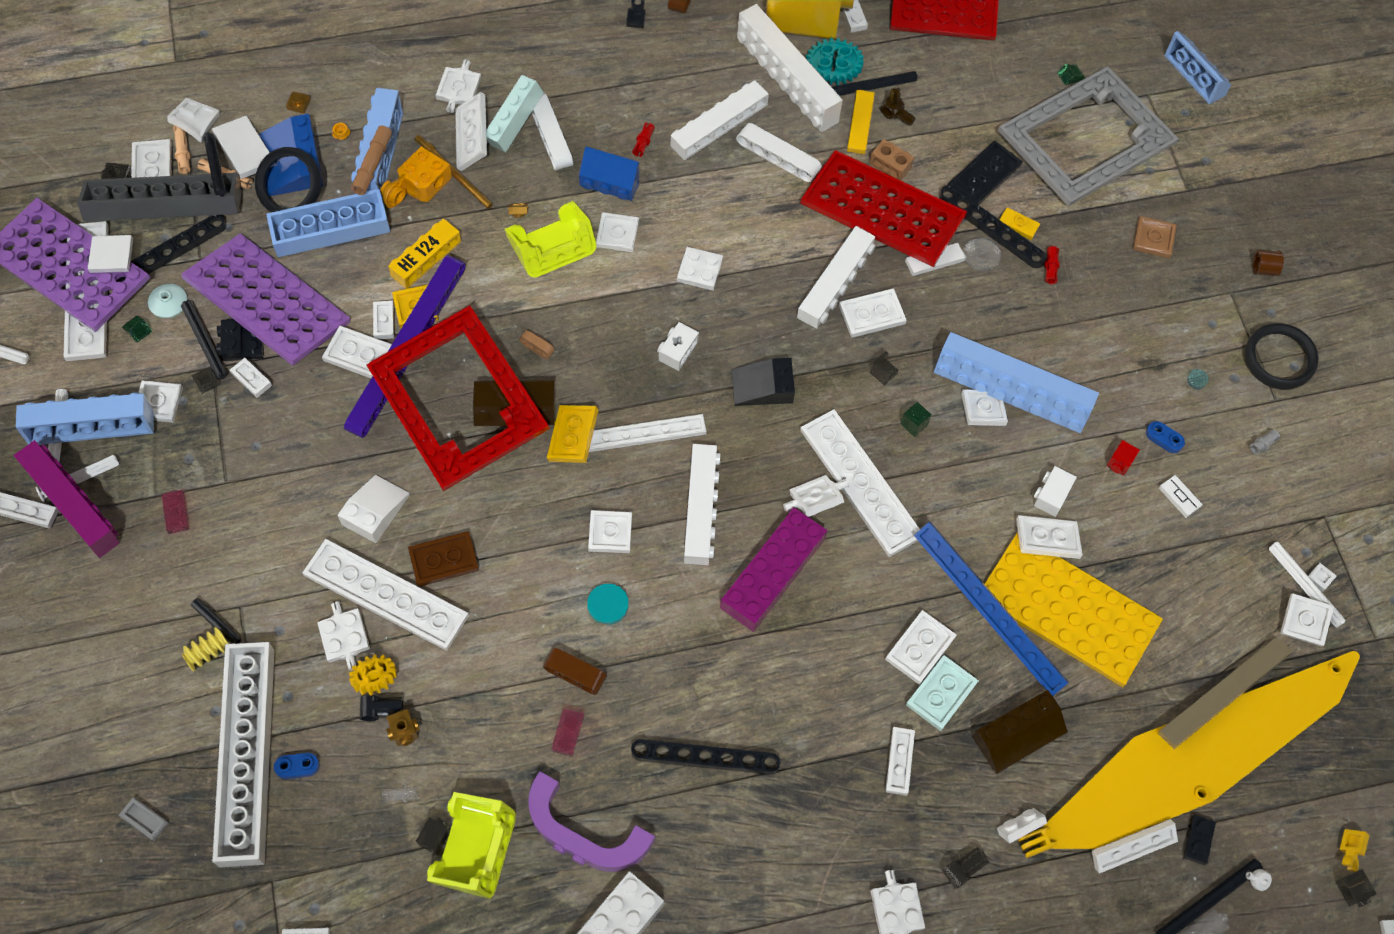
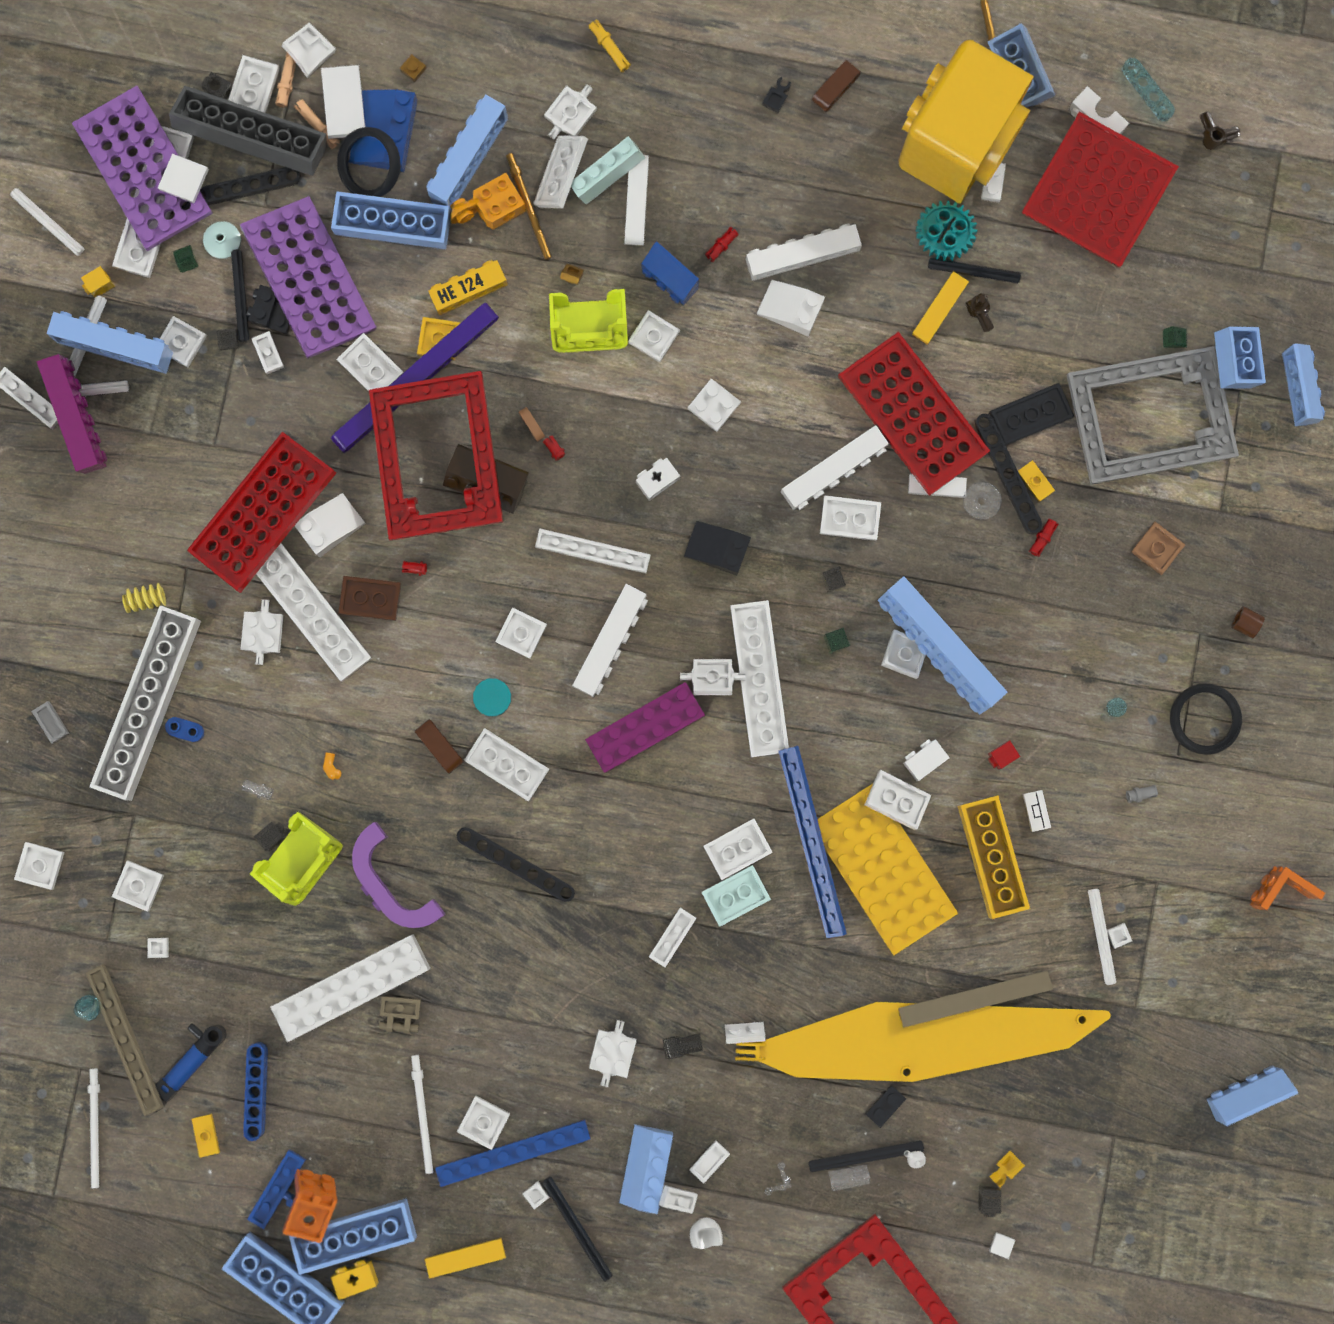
camera: 25 degrees right, 20 degrees up
(53, 377) = (97, 282): none -> yellow brick
(175, 512) = (161, 457): clear pink plate -> none
(214, 164) = (307, 117): black axle -> none
(215, 621) = (162, 575): black piece -> none
(321, 530) = (273, 509): none -> red piece
(338, 128) = (440, 114): light orange plate -> none
(371, 160) = (449, 178): medium nougat piece -> none
(373, 675) = (272, 679): yellow gear -> none
(375, 707) = (265, 708): black piece -> none
(383, 319) = (405, 341): white plate -> none
(402, 728) = (273, 733): pearl gold brick -> none
(465, 24) = (605, 40): none -> yellow pin
(469, 741) = (329, 768): none -> light orange arm
(477, 513) = (414, 567): none -> red pin
(568, 732) = (412, 796): clear pink plate -> none
(571, 359) = (554, 448): none -> red pin
(572, 434) = (526, 527): yellow plate -> none
(651, 663) = (506, 764): none -> white tile
(731, 164) = (791, 306): none -> white slope
(779, 152) = (844, 311): white beam -> none
(789, 68) = (894, 222): white brick -> none
(891, 160) = (943, 366): medium nougat brick -> none
(1021, 731) = (784, 957): dark brown slope -> none
(1134, 64) = (1239, 357): none -> light blue brick
(1134, 846) = (828, 1089): white plate -> none
(1165, 437) = (1054, 750): blue plate -> none
(1167, 550) = (993, 857): none -> yellow brick
(1307, 620) = (1081, 968): white plate -> none

